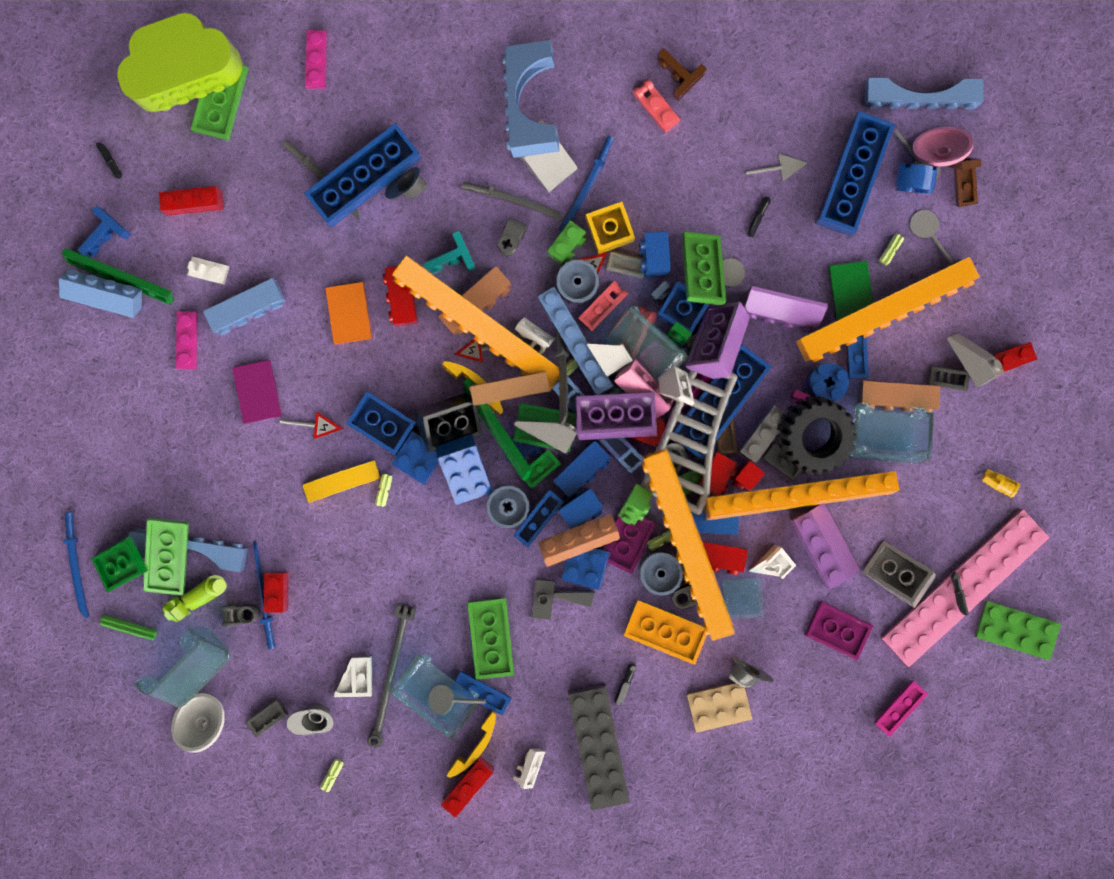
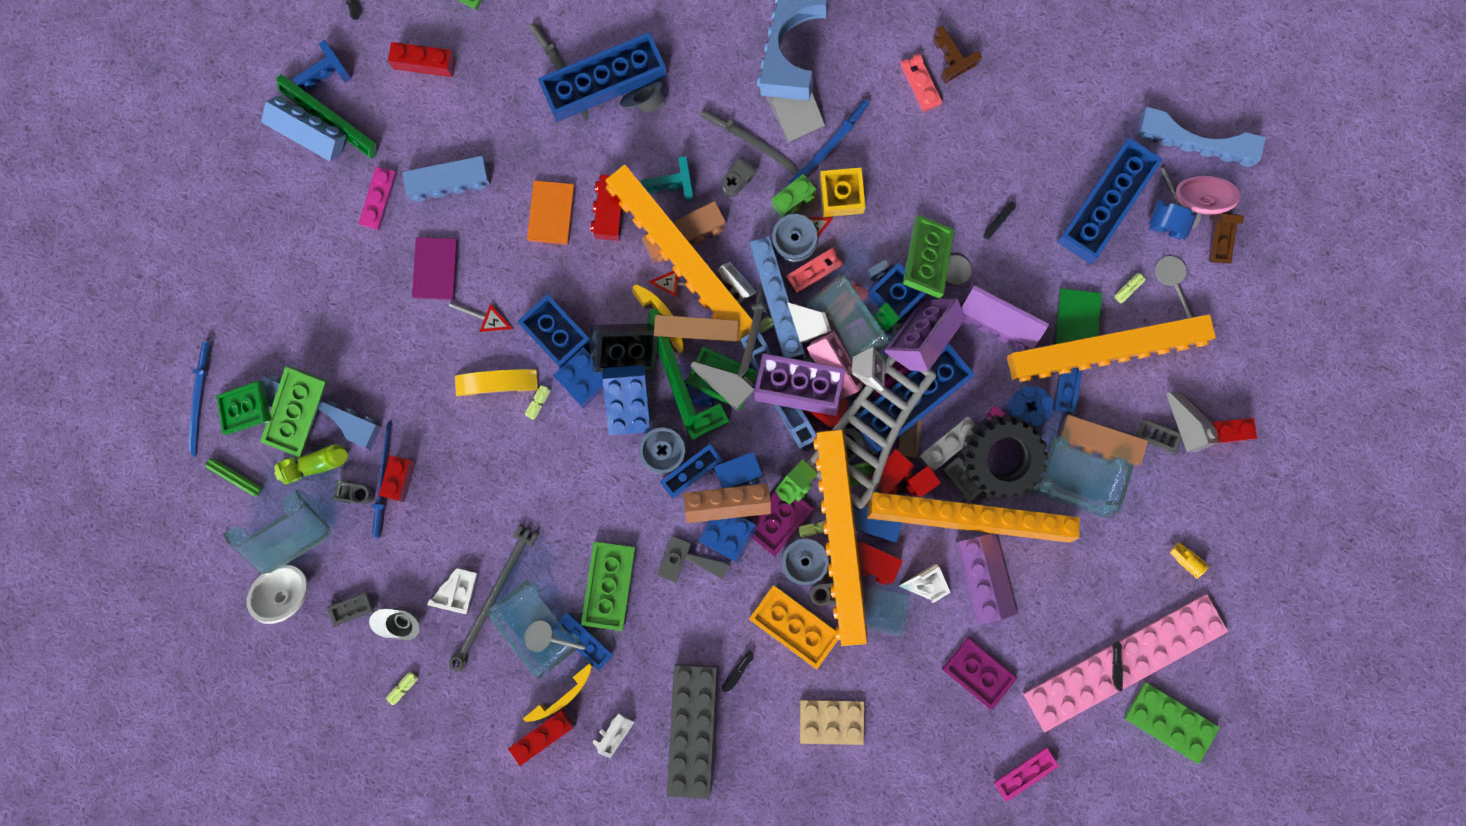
camera: 15 degrees right, 5 degrees down
(207, 270) = (418, 133): white plate -> none
(582, 469) = (750, 433): blue brick -> none
(624, 265) = (849, 235): light grey tile -> none
(655, 254) = (882, 230): blue brick -> none
(746, 674) = (868, 694): dark grey piece -> none
(787, 165) = (1042, 176): light grey piece -> none
(899, 574) = (1058, 629): light grey slope -> none

